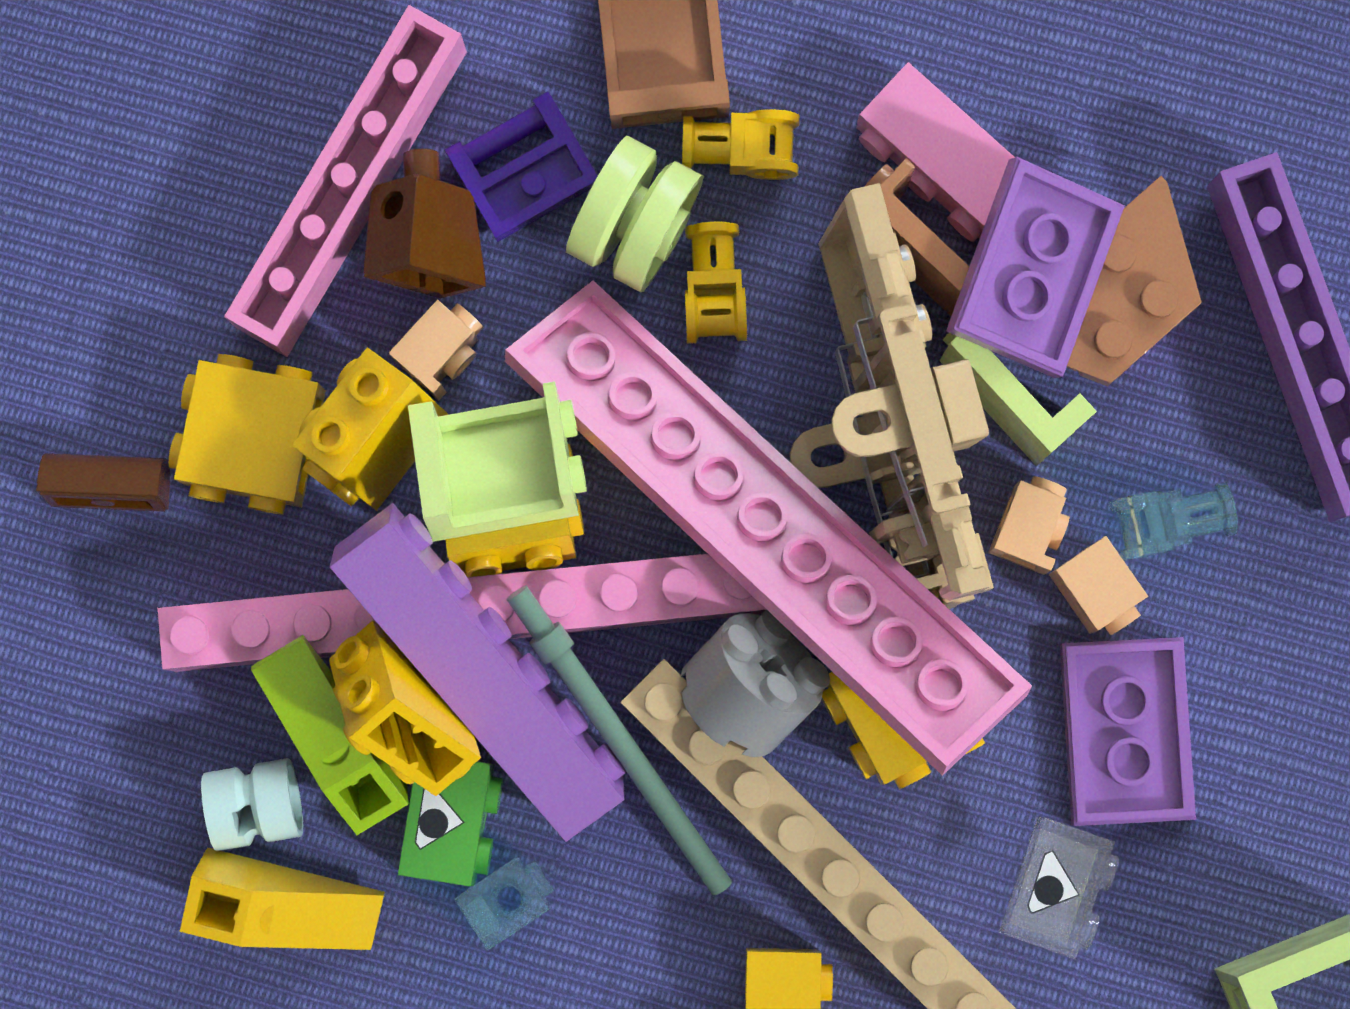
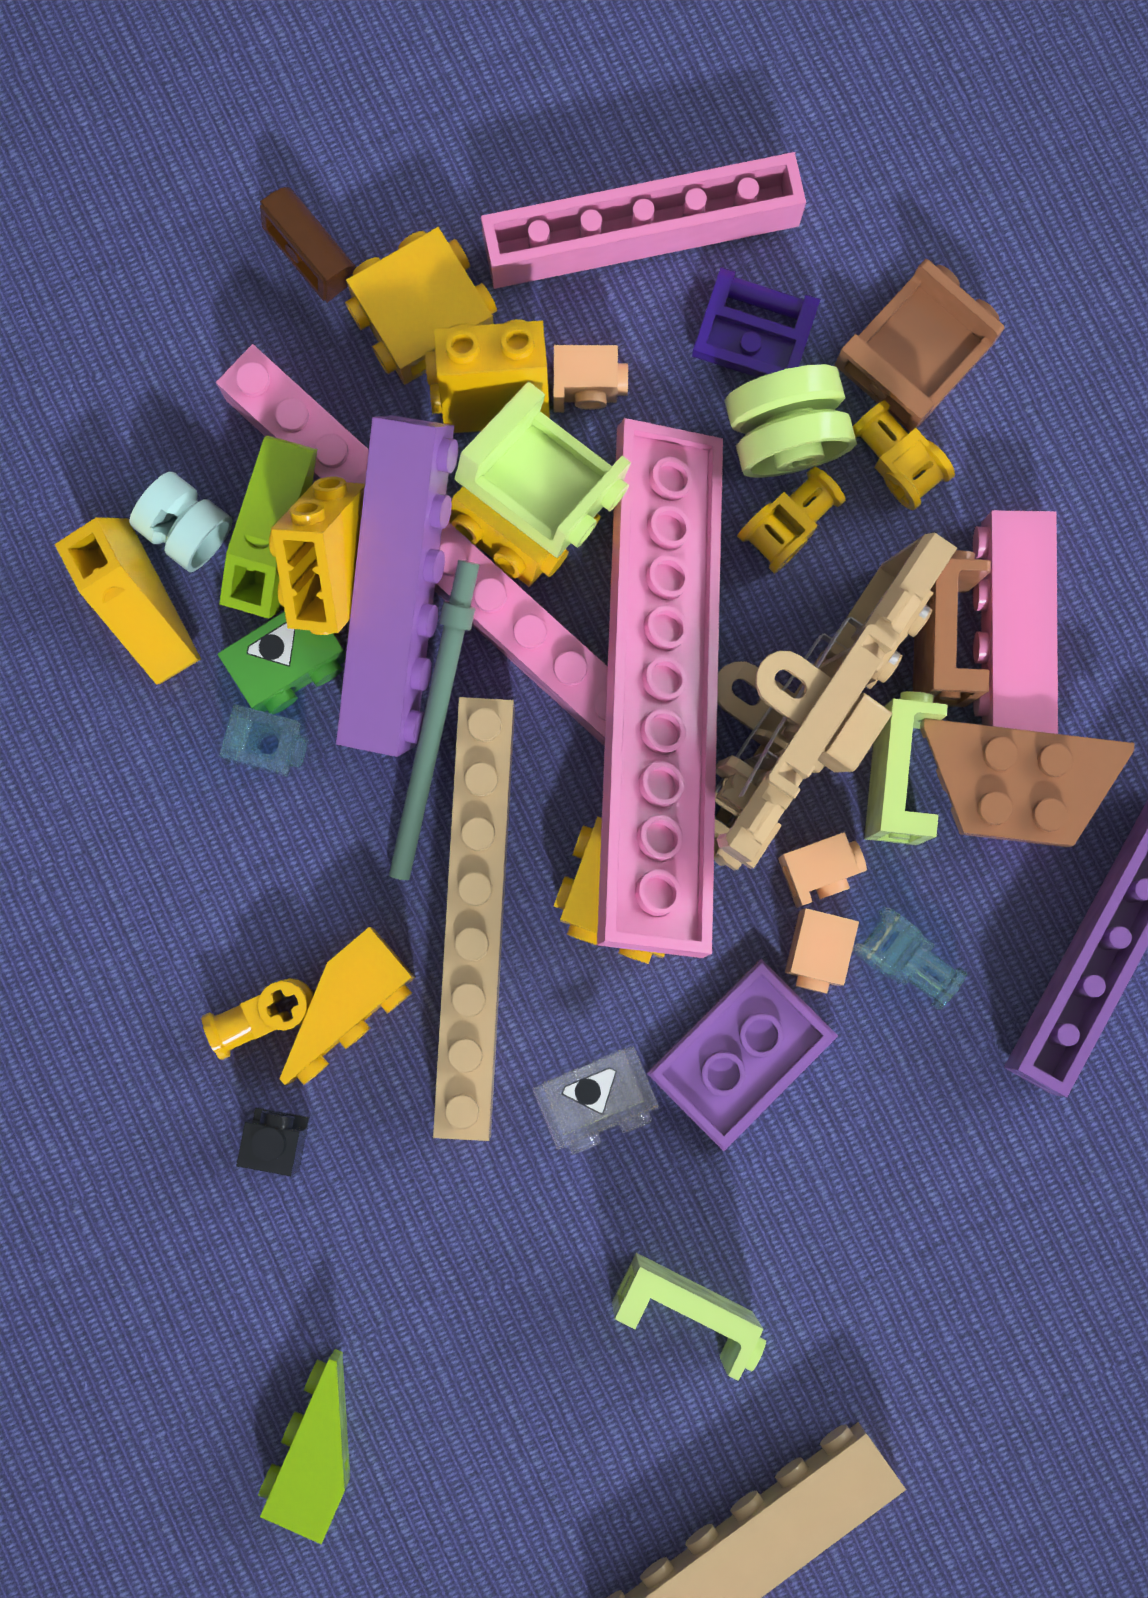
camera: 40 degrees right, 0 degrees up
(424, 232) = (653, 298): reddish brown torso -> none
(752, 683) = (548, 772): light grey brick -> none
(1035, 268) = (995, 710): medium lavender tile -> none

